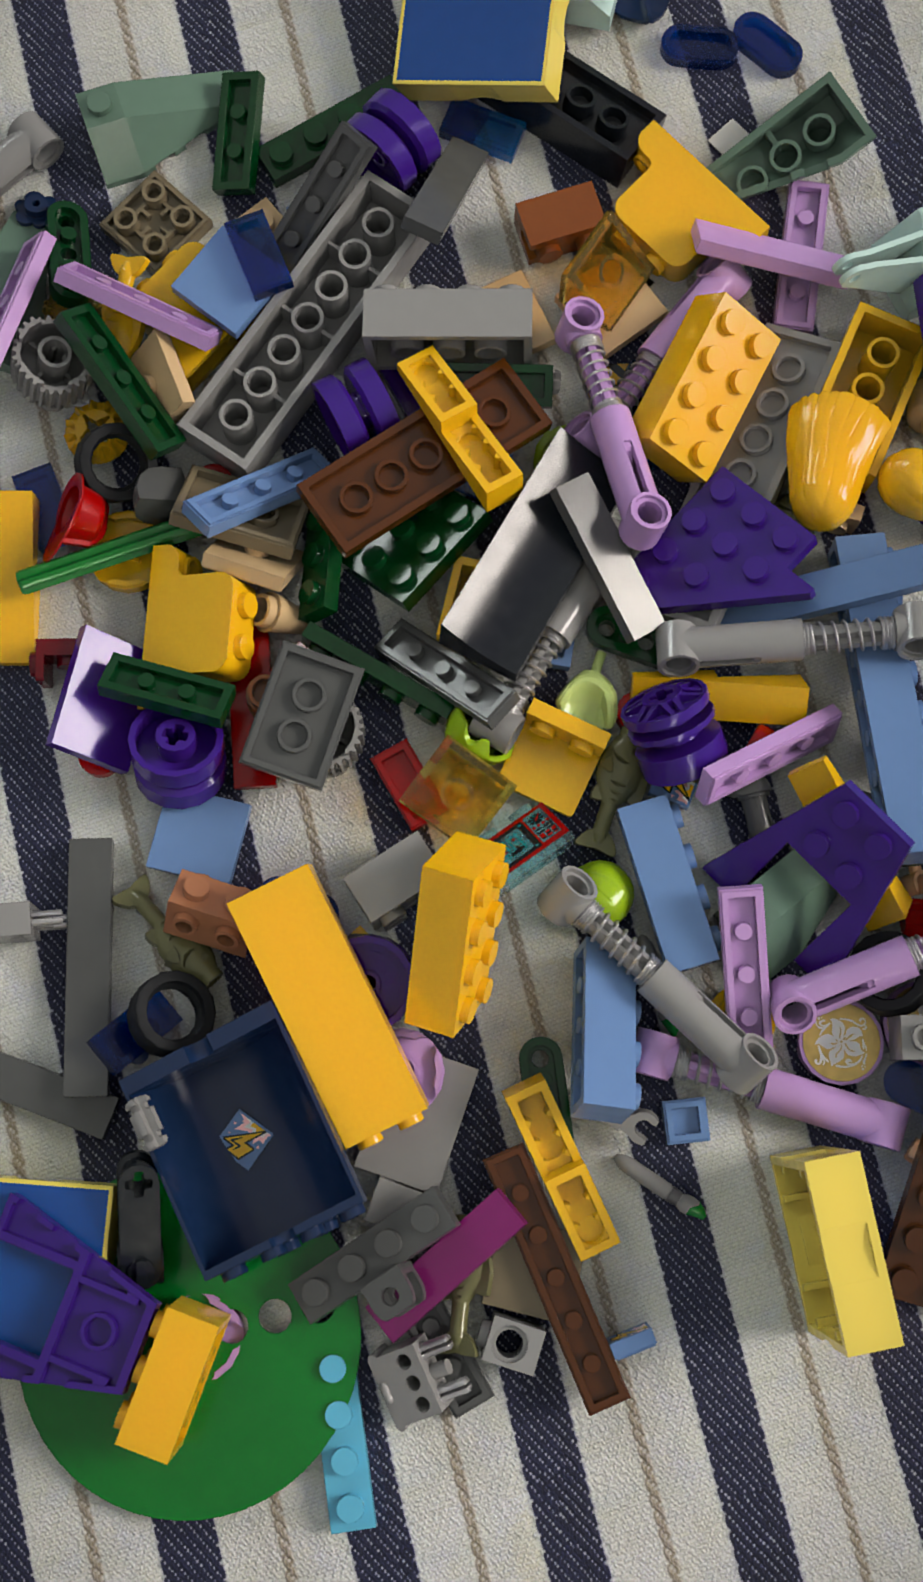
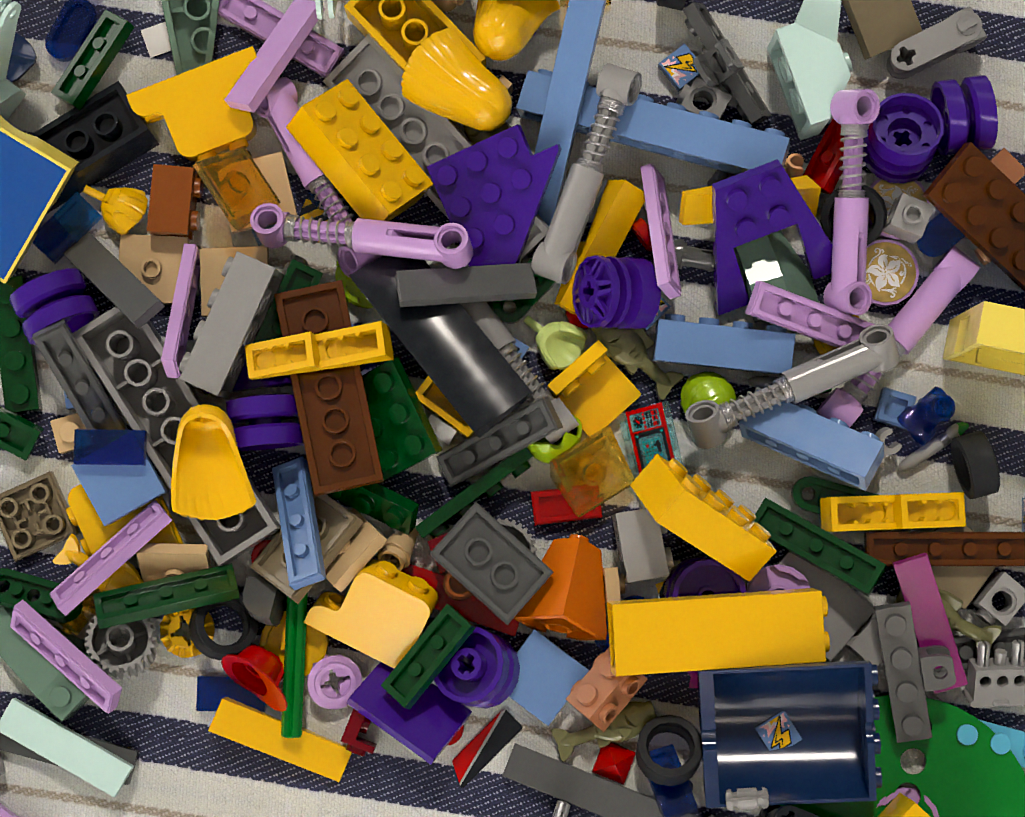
camera: 65 degrees left, 5 degrees up
(96, 809) = (485, 746): none -> sticker
(103, 588) = (325, 695): none -> lavender gear
(134, 961) = (614, 762): none -> red slope
(280, 362) = (208, 468): none -> yellow hair
(309, 825) = (573, 595): none -> orange slope
(334, 872) = (613, 584): none -> tan plate
(433, 607) = (441, 429): none -> white sticker
(444, 269) = (181, 311): none -> lavender tile
(480, 1093) = (820, 547): none -> dark green plate
(482, 237) = (153, 261): none -> tan plate
(530, 171) = (120, 207): none -> yellow piece
(659, 1242) = (975, 465): none -> black tyre
(677, 79) = (92, 59): none -> dark green plate
(685, 1158) = (926, 414): none -> clear blue plate

